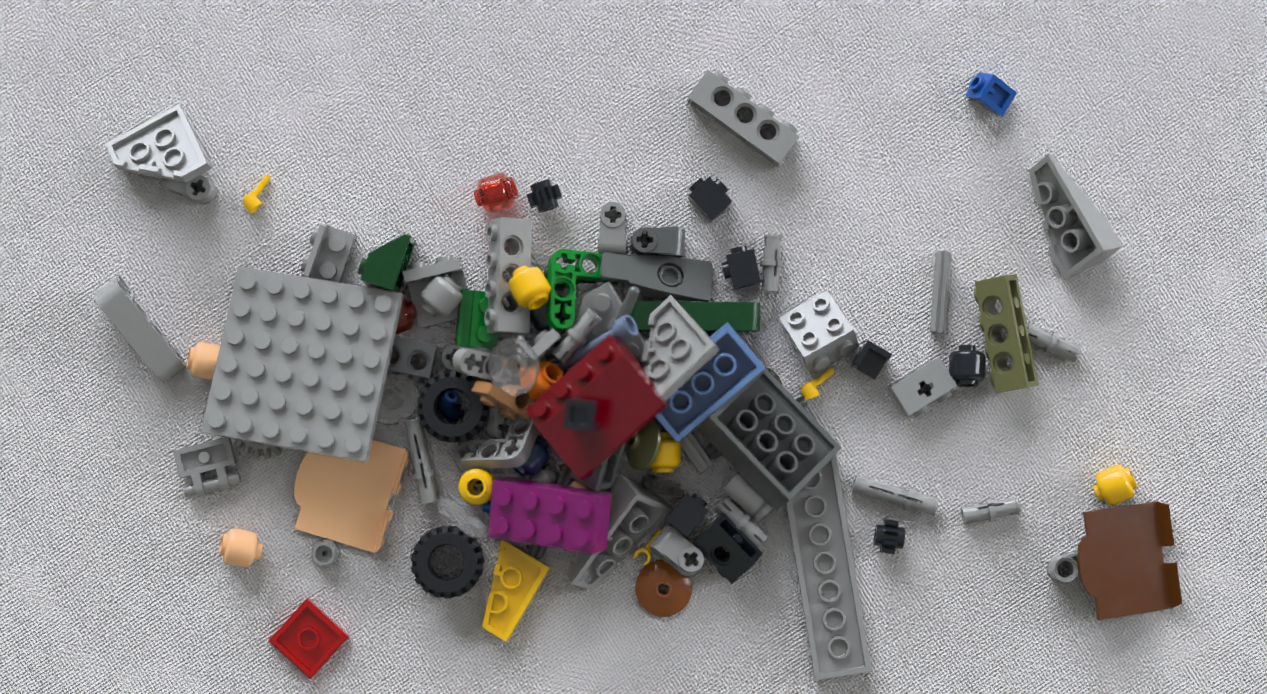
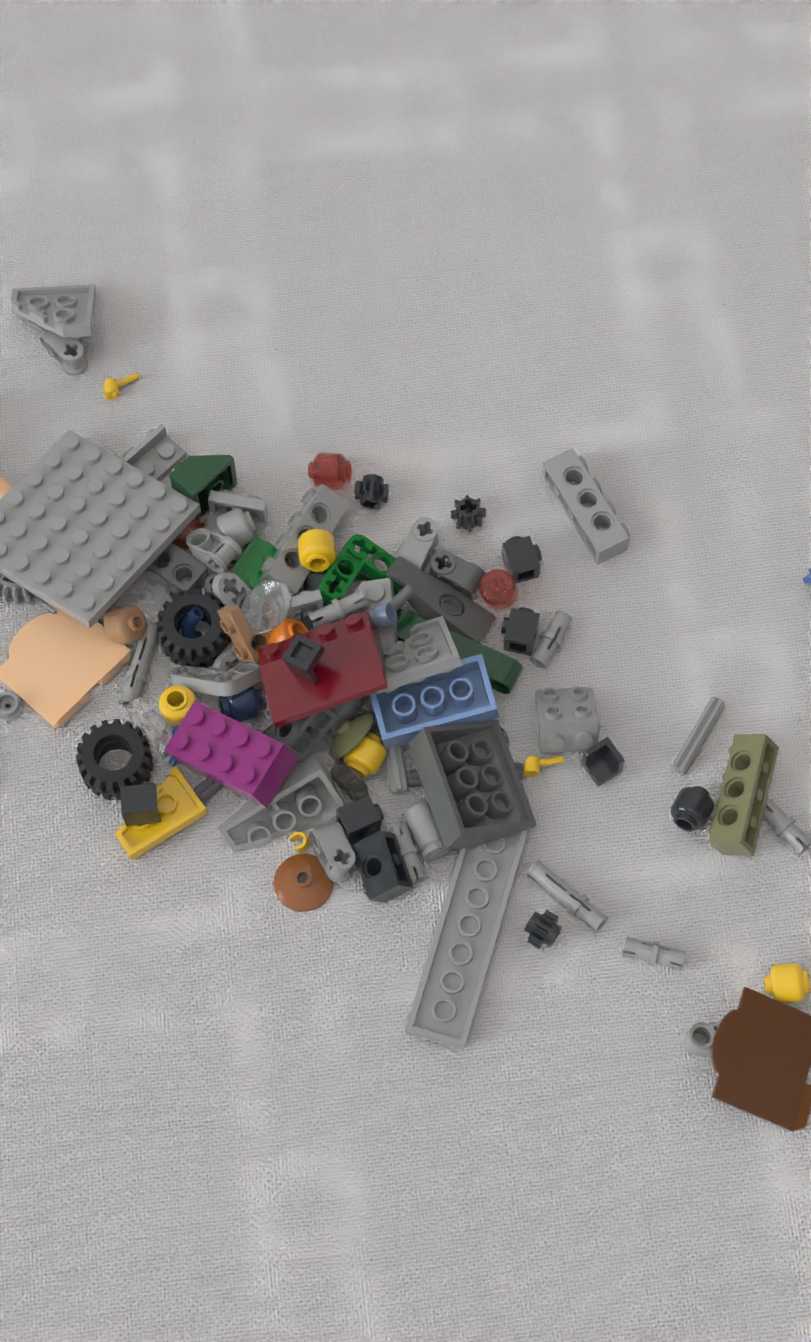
camera: 30 degrees right, 20 degrees down
(391, 433) = (125, 624): none -> medium nougat head
(437, 328) = (213, 549): none -> light grey piece
(492, 595) = (140, 804): none -> black panel
(639, 183) = (468, 505): none -> black gear
(703, 230) = (506, 593): none -> clear red head
(906, 389) = (653, 800): light grey brick -> none

